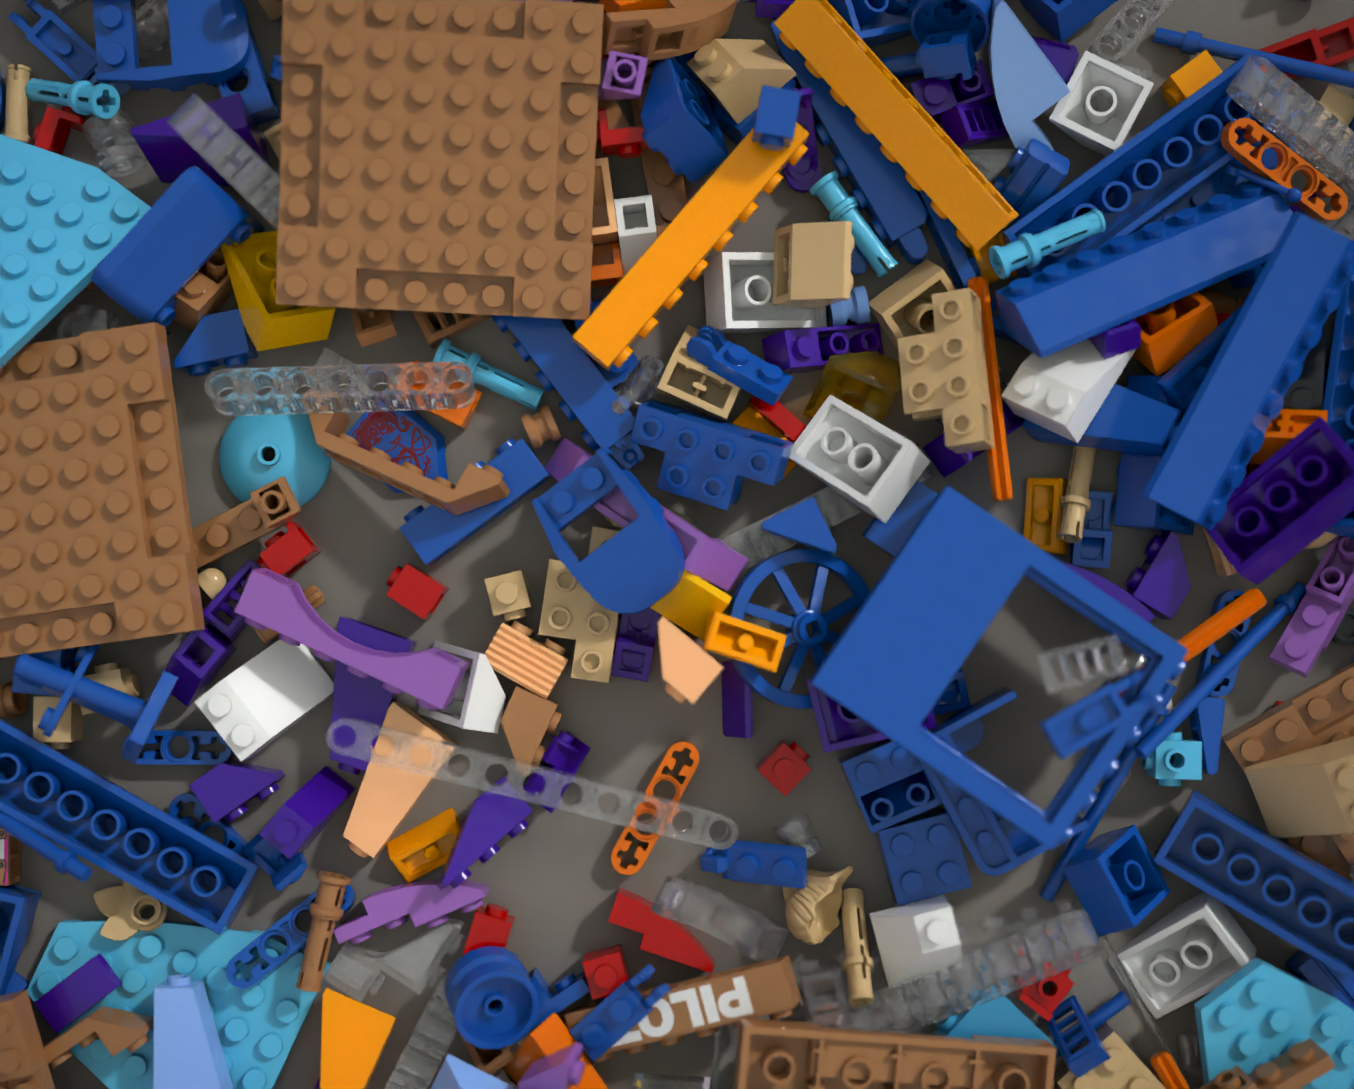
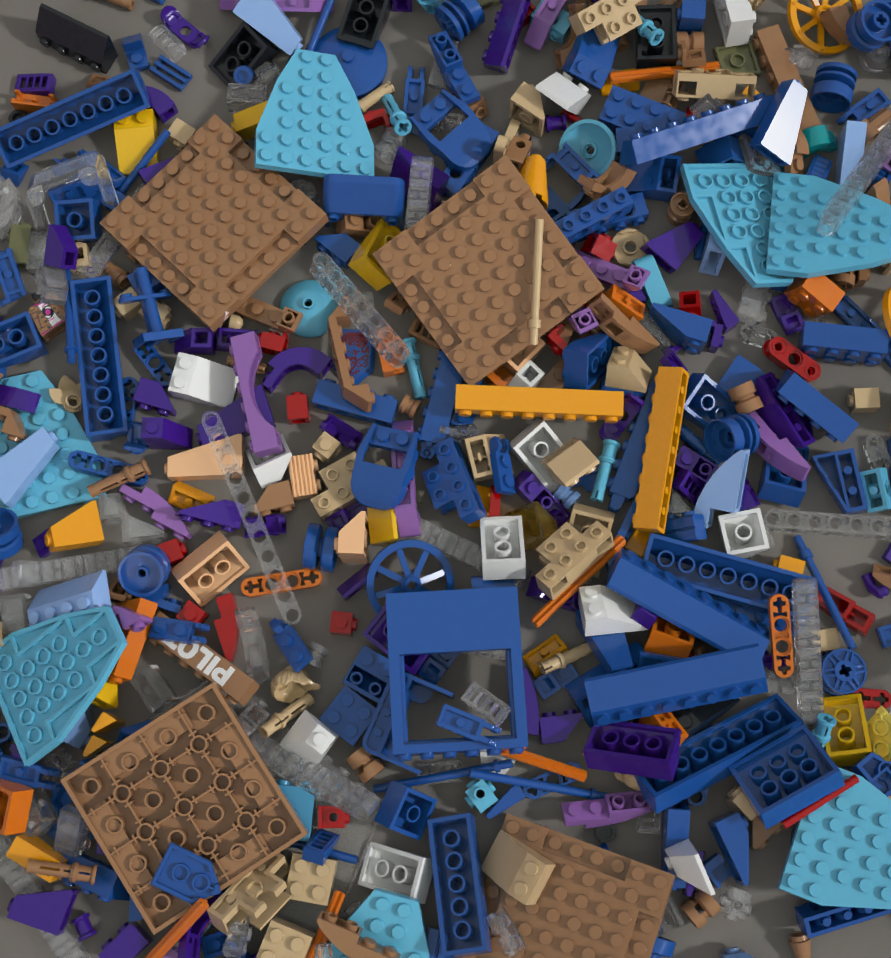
camera: 50 degrees right, 10 degrees down
(338, 538) = (296, 359): none -> dark purple arch
(510, 550) = (342, 431): none -> dark purple hinge
(555, 895) = (210, 569): none -> light nougat slope
(574, 149) = (534, 323): none -> tan bar
(651, 717) = (320, 547): none -> blue wheel
(743, 641) = (382, 557): light orange slope -> none
(776, 118) = (616, 395): blue brick -> none
(802, 525) = (454, 546): blue slope -> none
(947, 55) = (707, 449): blue brick -> none
(1014, 888) = (365, 764): none -> medium nougat wheel
(1031, 248) = (651, 548): medium azure pin -> none
(1293, 195) = (771, 646): blue hinge -> none

